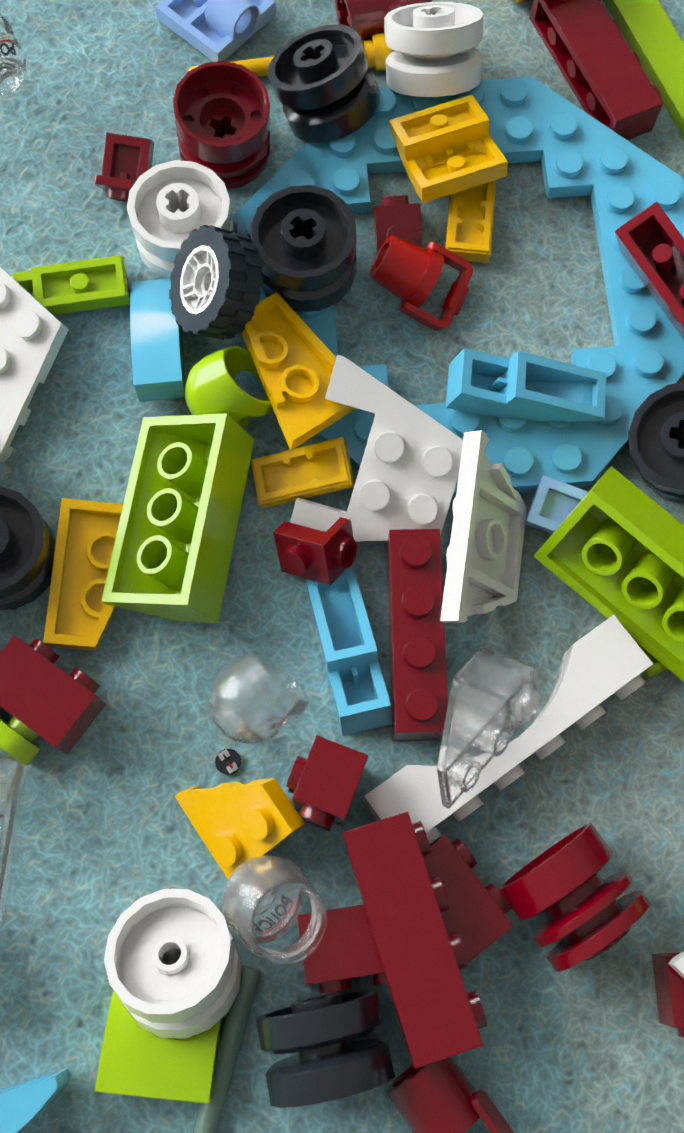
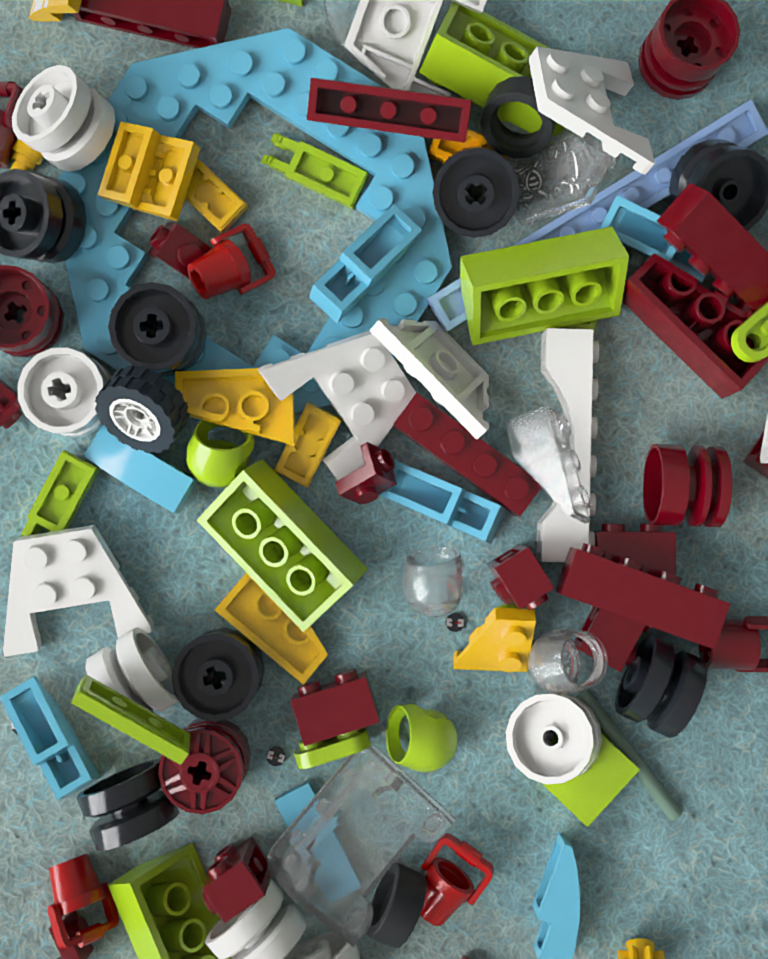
camera: 50 degrees left, 15 degrees up
(70, 814) = (431, 738): none -> lime helmet
(576, 299) = (319, 171): none -> lime hinge

